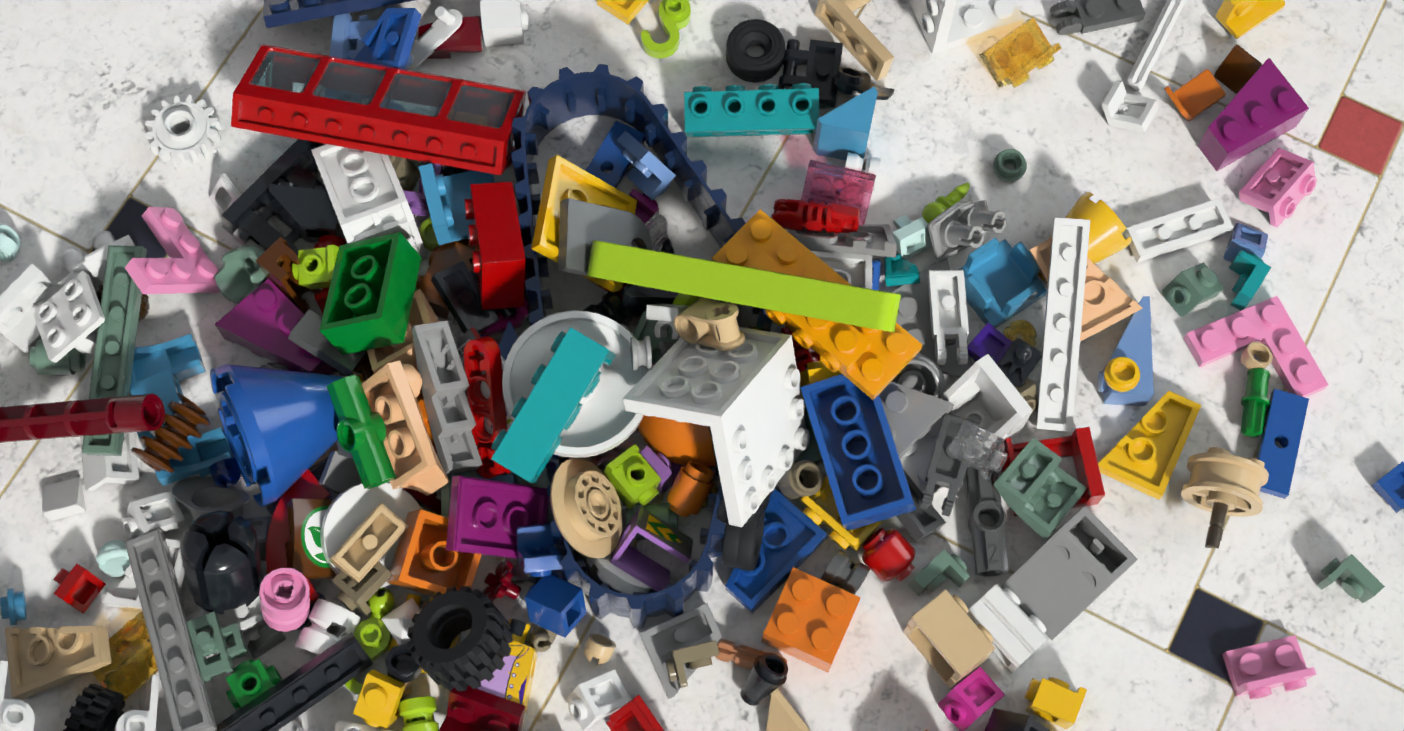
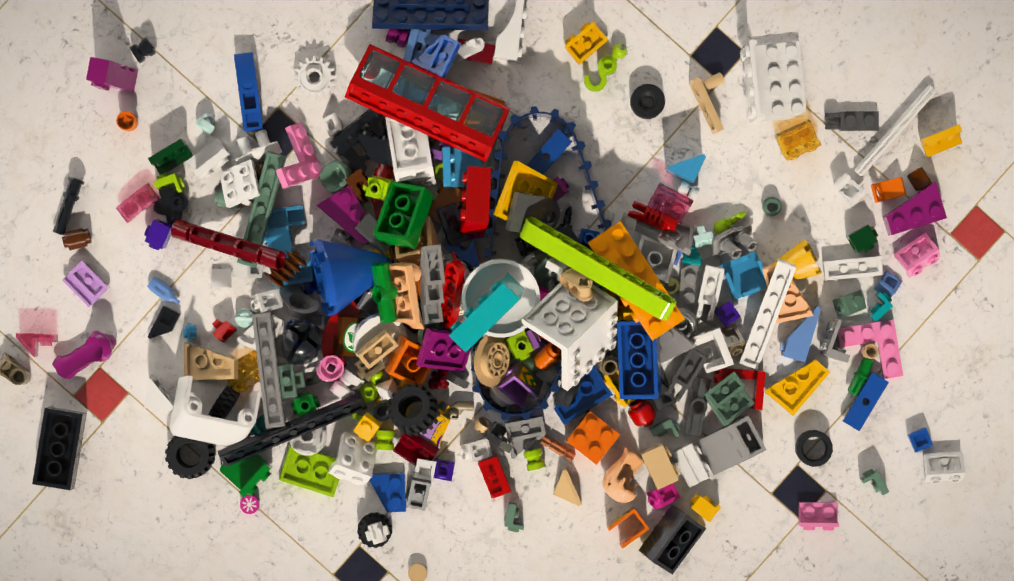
camera: 20 degrees right, 20 degrees up
(69, 176) = (248, 91): none -> blue slope
(313, 38) = (393, 34): none -> magenta wheel
(537, 550) = (461, 372): blue bracket -> none
(555, 605) = (464, 399): blue brick -> none
(632, 661) = (496, 436): none -> dark grey bracket
(641, 353) = (537, 293): light grey bush -> none
(648, 171) = (567, 166): medium blue bracket -> none
(695, 655) = (531, 443): dark tan bracket -> none
(712, 688) = (534, 454): none -> lime wheel
(751, 111) = (635, 143): teal brick -> none
(765, 676) = (562, 461): black cone -> none
(822, 64) = (681, 125): black plate -> none
(845, 573) = (617, 417): dark grey wheel -> none
(852, 81) = (699, 138): black plate -> none
(880, 679) = (619, 476): none -> light nougat piece
(978, 449) = (701, 373): clear bracket -> none
(1019, 362) = (738, 328): black piece -> none
(1023, 328) = (746, 303): clear yellow plate -> none
(1122, 374) = (791, 349): yellow plate -> none
(1178, 179) = (863, 239): none -> dark green brick
(1186, 364) = (827, 344): none -> light grey bracket
(1200, 566) = (815, 462): none -> black tyre
(1225, 487) = (825, 422): tan wheel -> none

